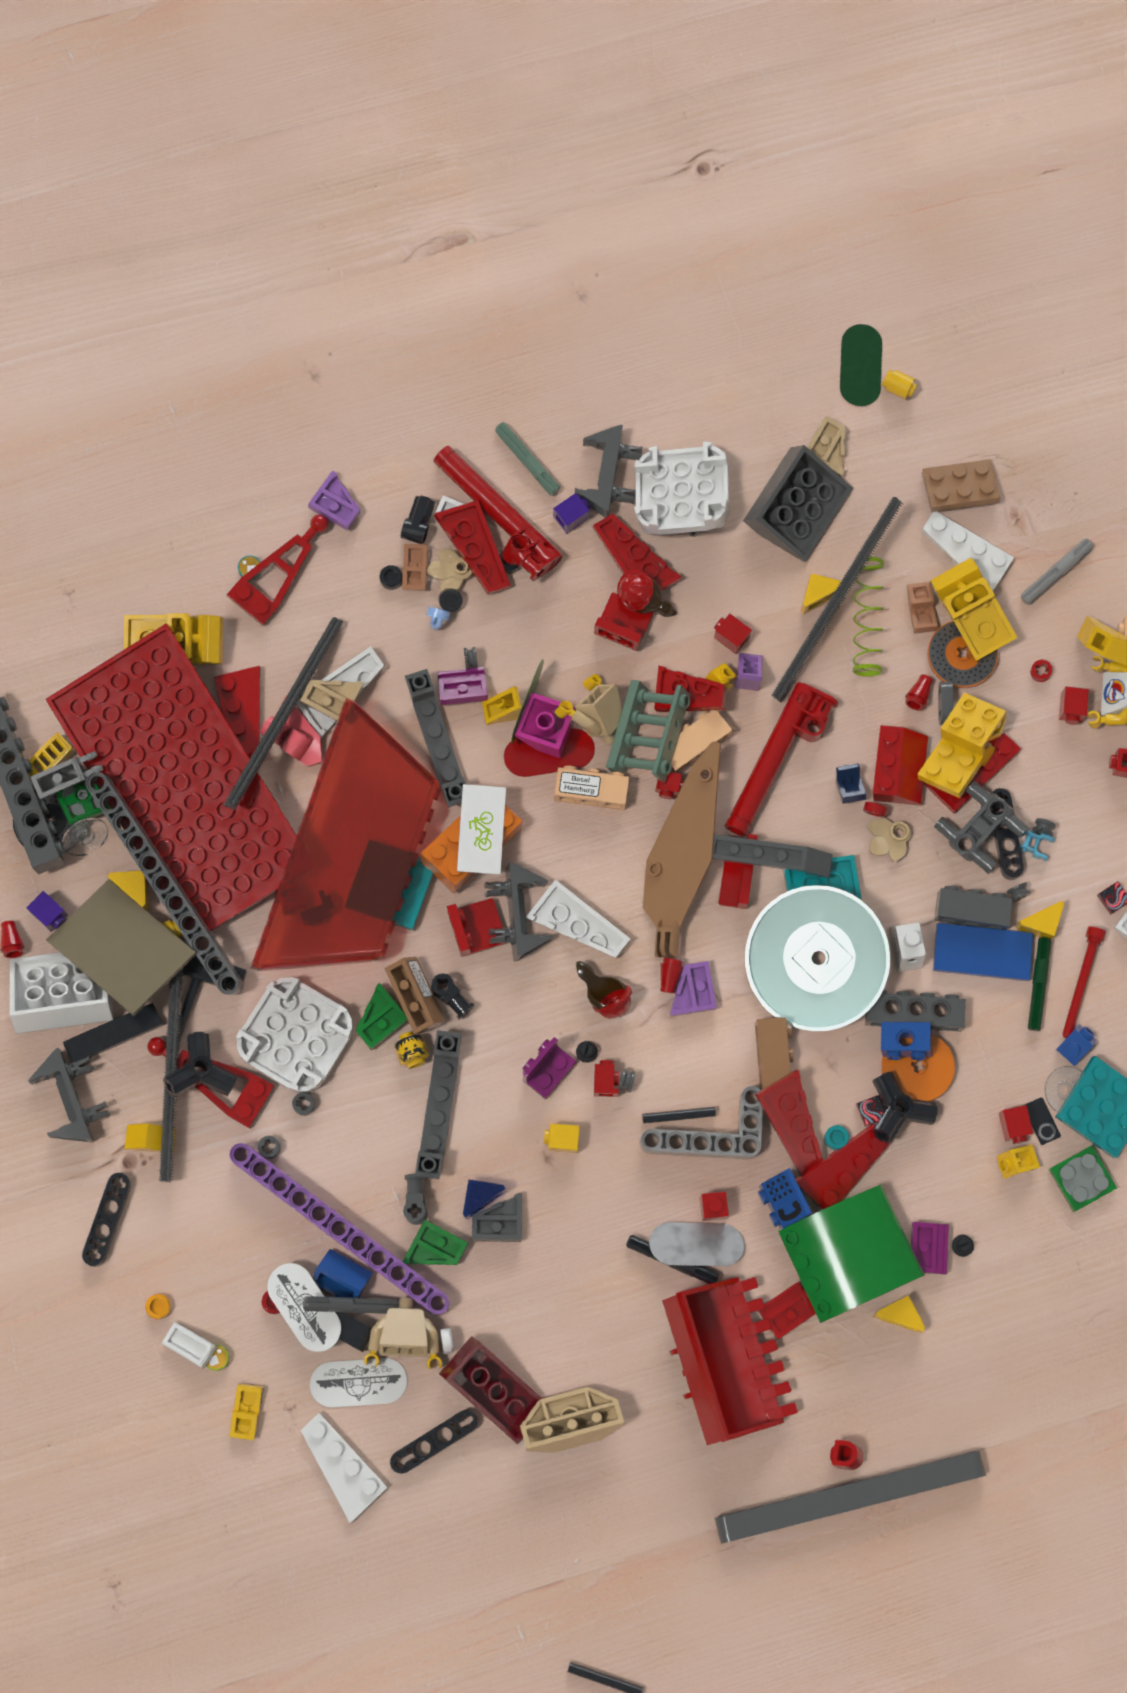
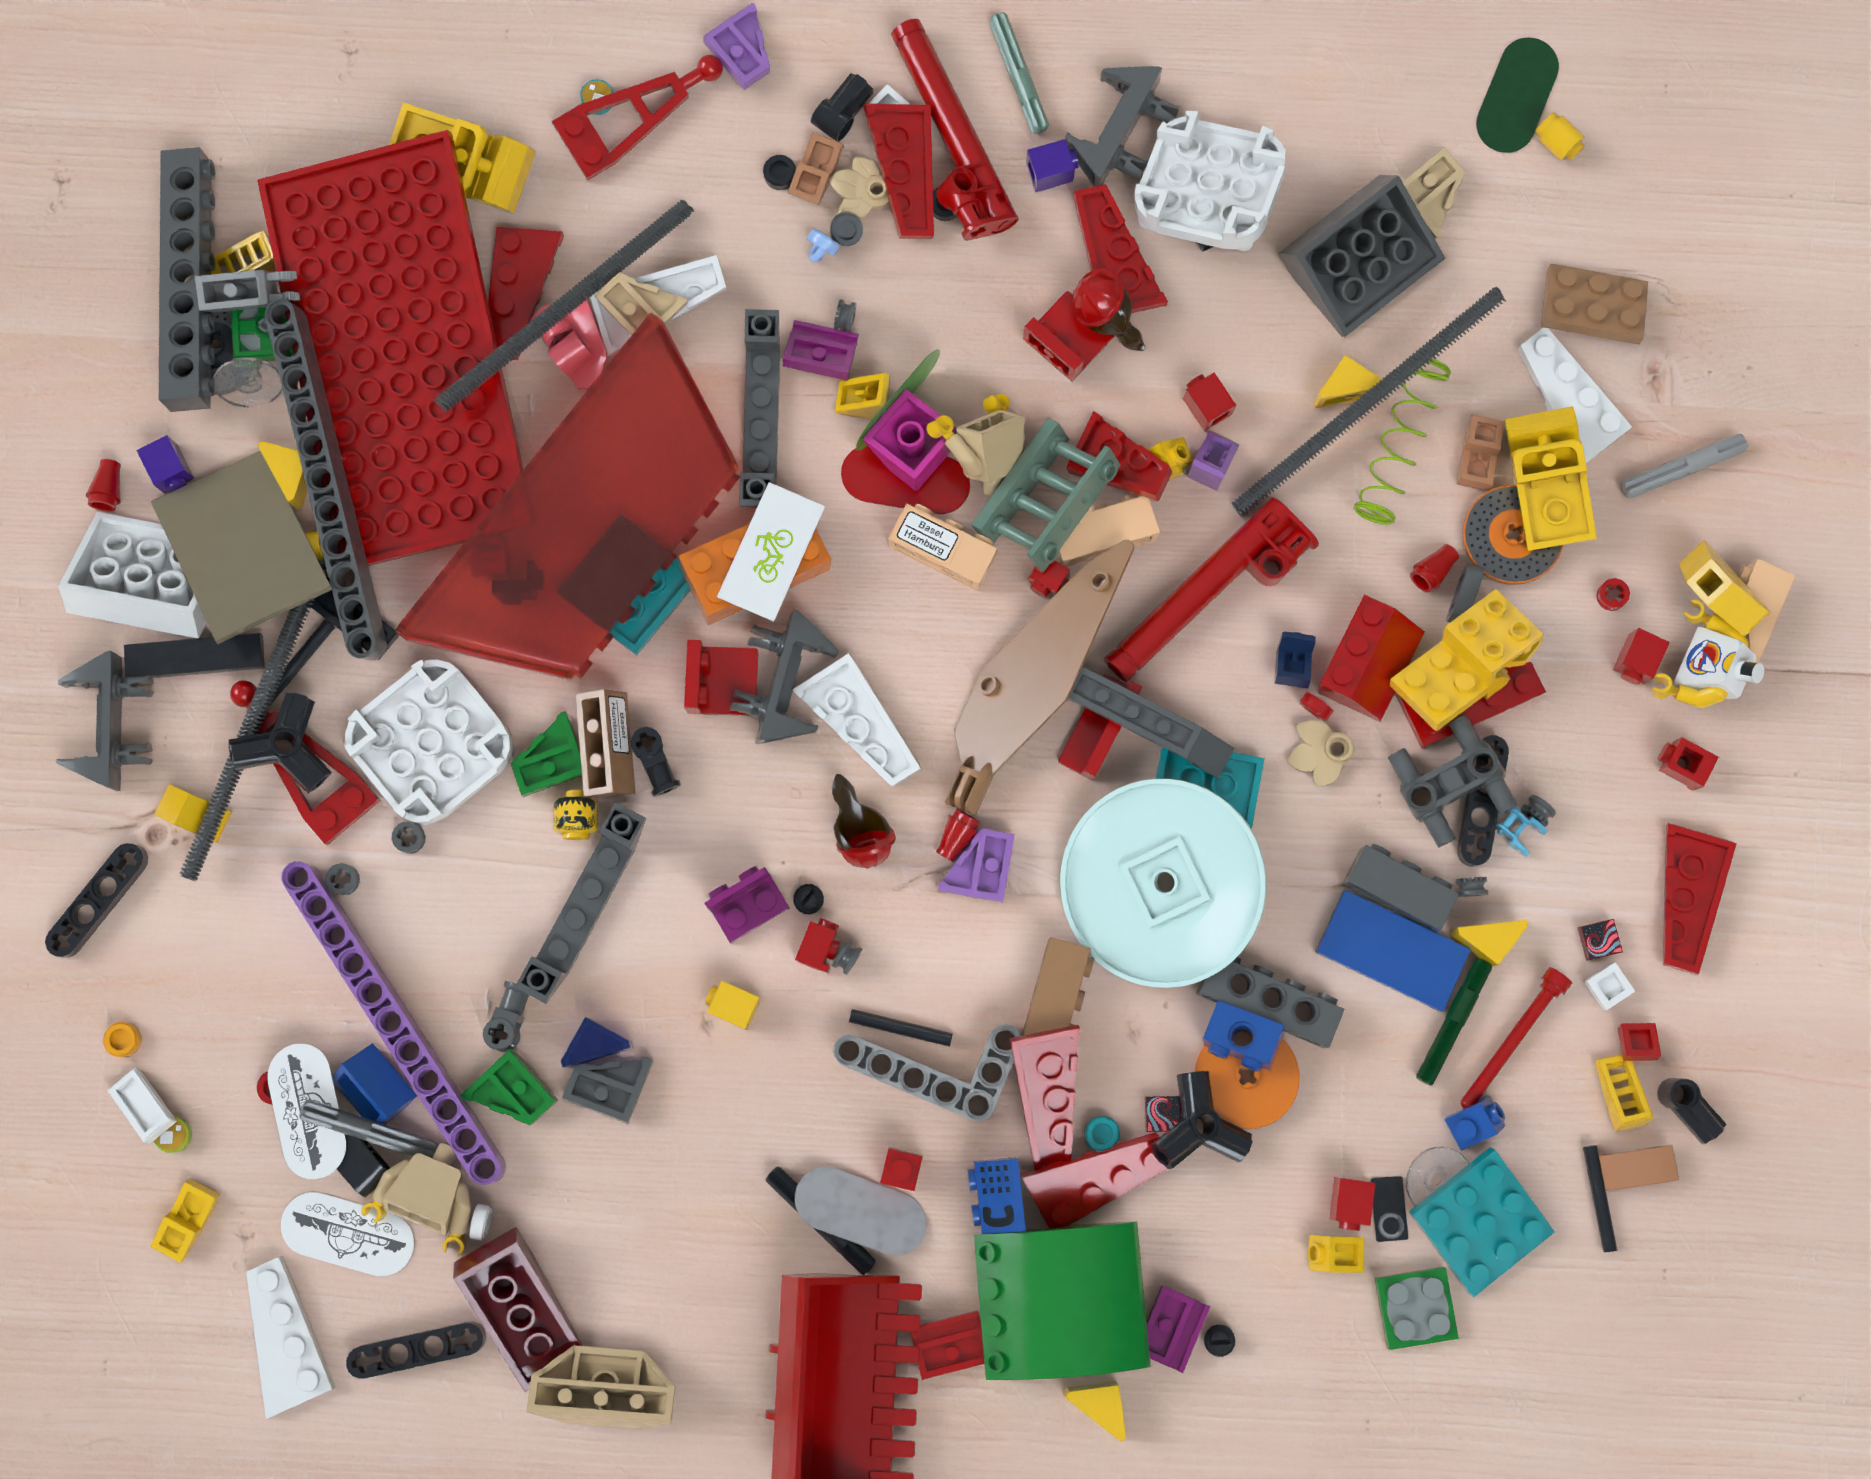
camera: 20 degrees right, 5 degrees up
(908, 945) = (1292, 908): white torso -> none

